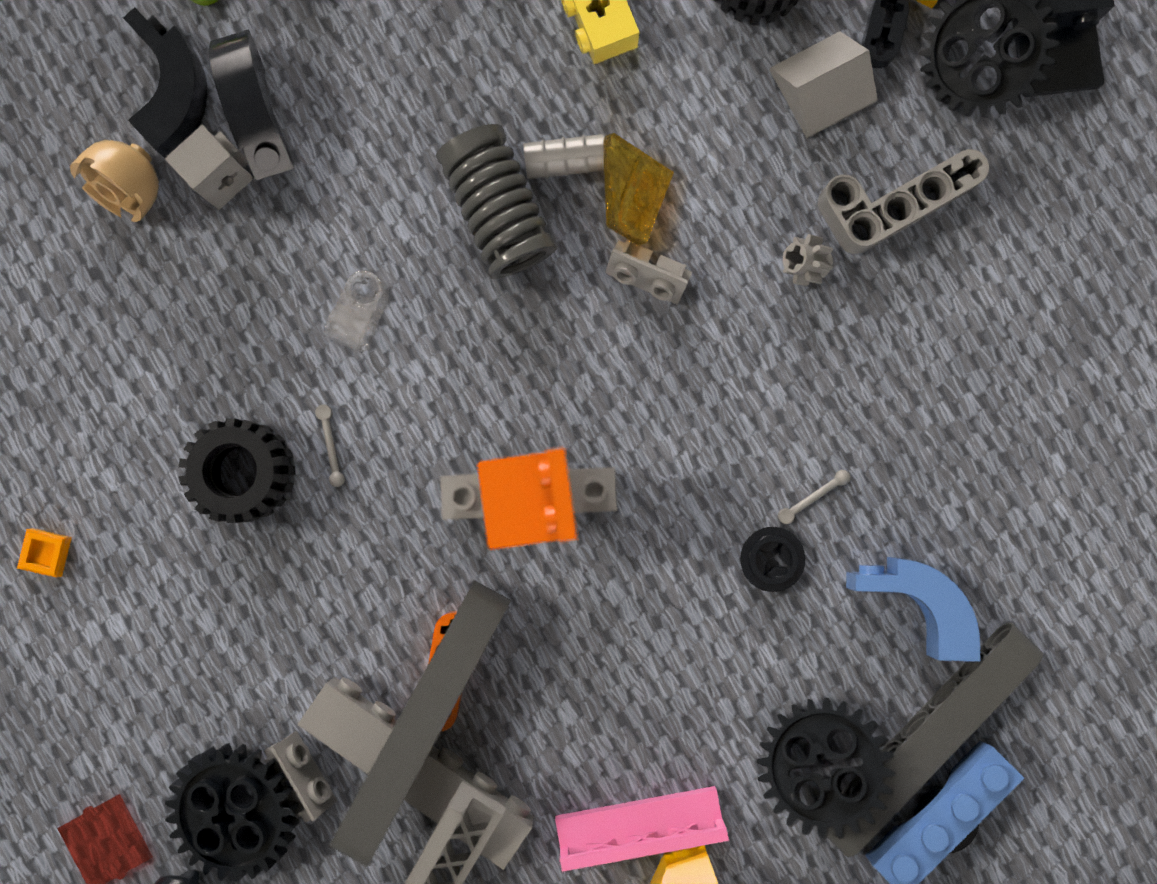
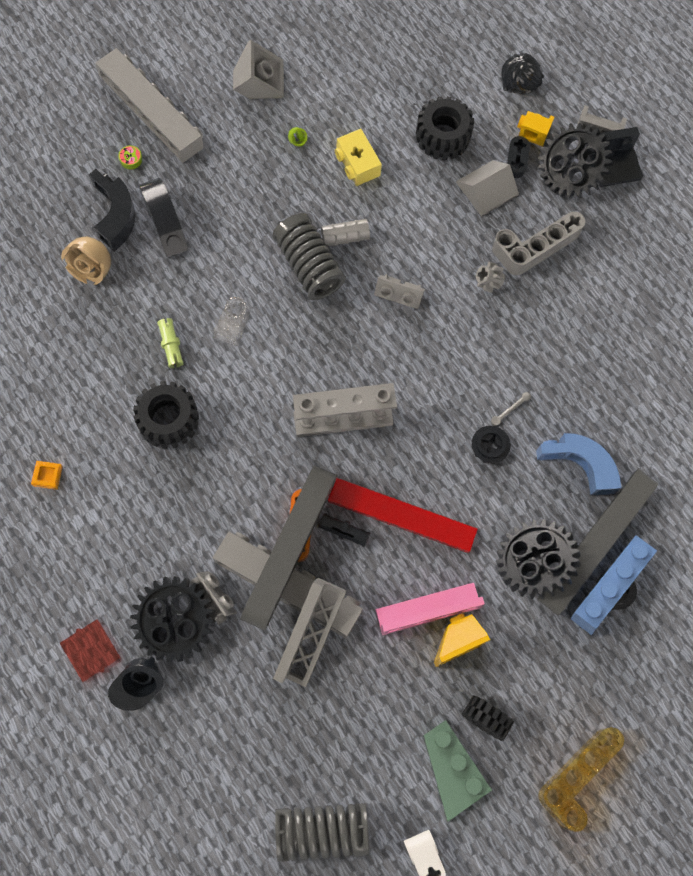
camera: 10 degrees left, 15 degrees down
(211, 166) = (143, 248): light grey brick -> none
(253, 339) = (170, 343): none -> yellowish green pin
(324, 413) = (214, 383): light grey hinge -> none
(517, 685) = (344, 529): none -> black pin
(527, 499) = (347, 399): orange bracket -> none
(614, 667) = (402, 515): none -> red tile
(632, 188) = (386, 245): clear yellow wing -> none

